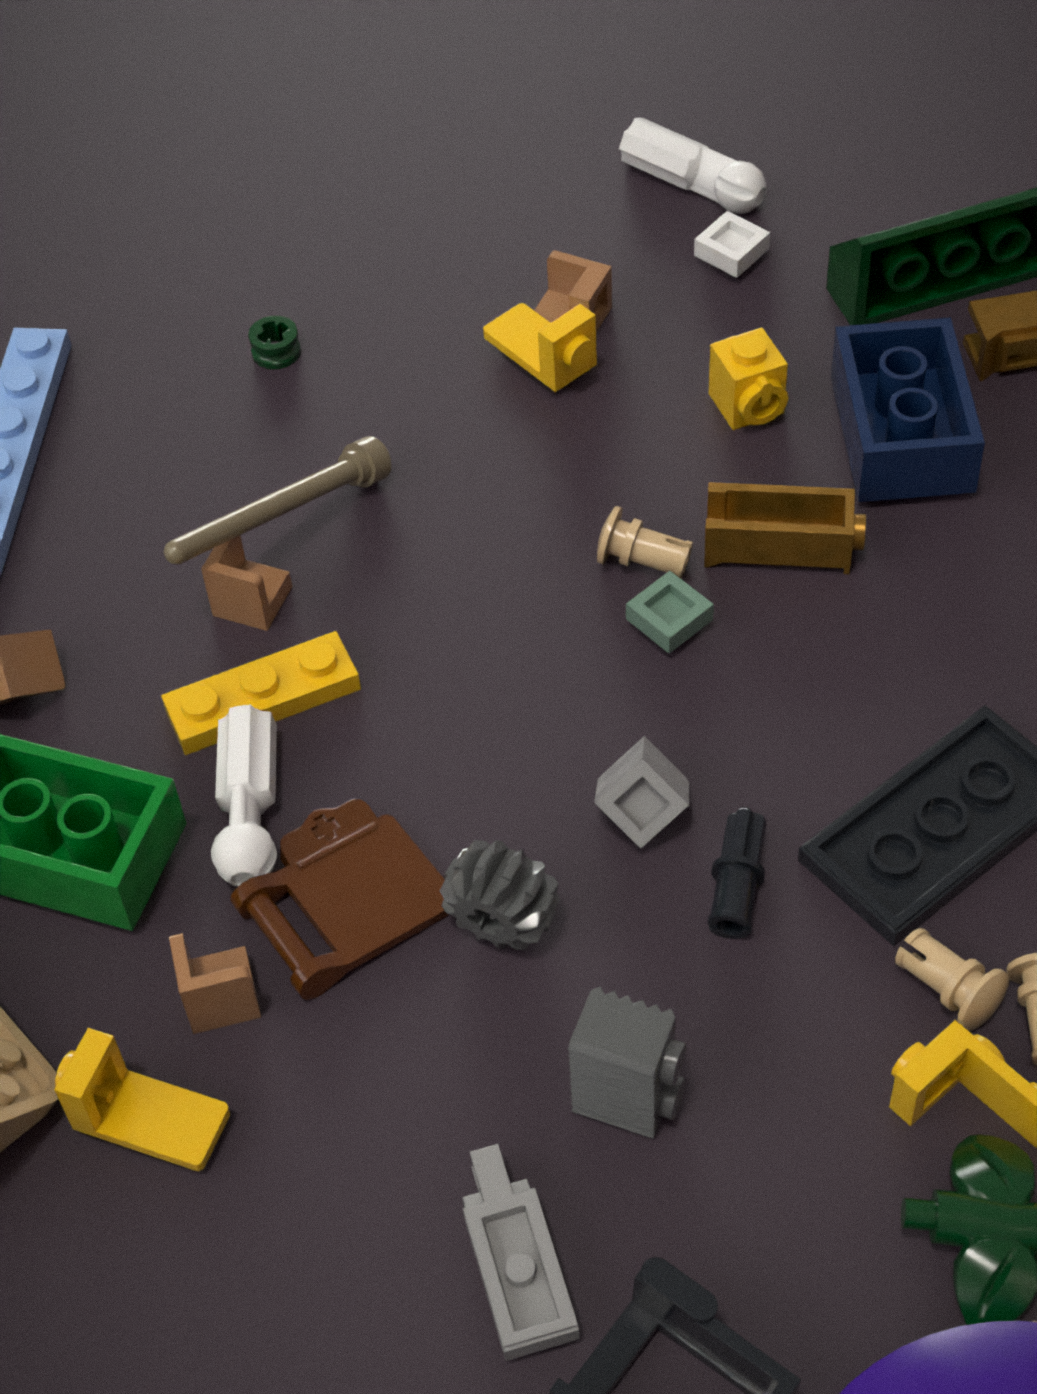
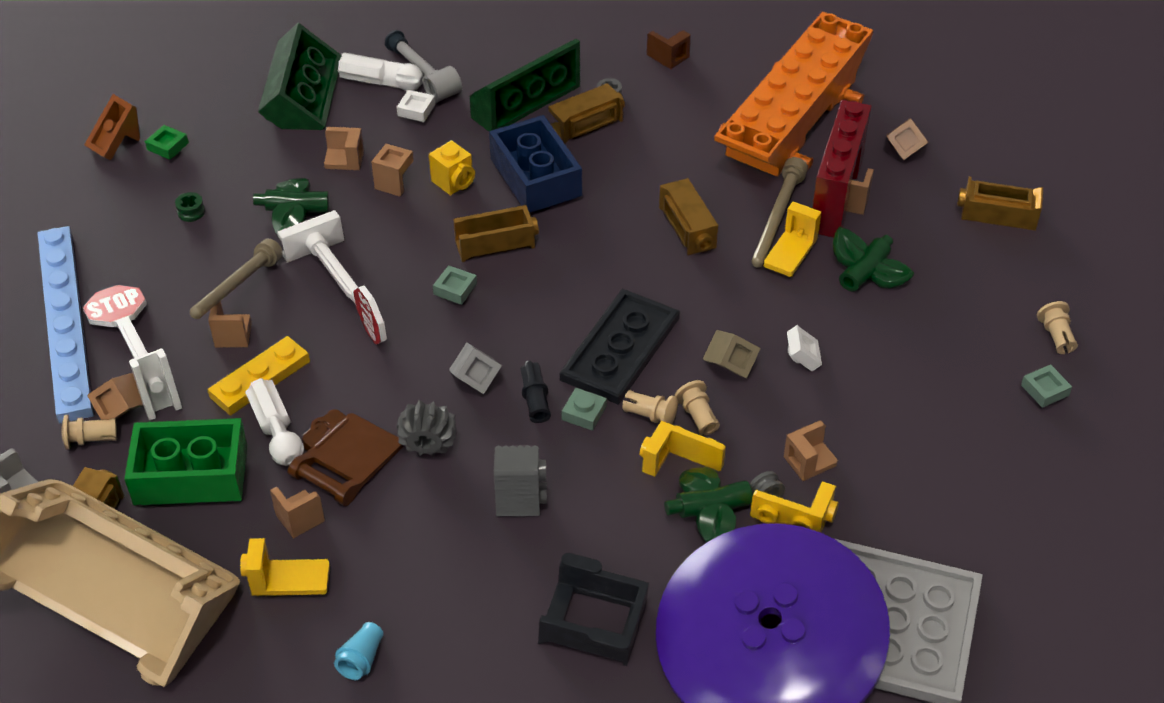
camera: 25 degrees left, 5 degrees down
(62, 642) = (151, 370): none -> white piece
(204, 1320) = (357, 654): none -> medium azure cone
(209, 161) = (115, 122): none -> dark orange slope
(283, 215) = (166, 142): none -> green plate
(442, 378) = (292, 202): none -> dark green plant
(452, 455) = (316, 237): none -> white piece
(516, 1260) = (497, 581): light grey hinge -> none
(547, 155) = (300, 81): none -> dark green slope
(547, 350) = (342, 178): yellow bracket -> none
(636, 350) = (389, 167): none -> medium nougat panel
(642, 545) = (429, 258): tan pin -> none
(787, 209) = (440, 83): none -> light grey piece
(820, 937) = (584, 409): none -> sand green plate

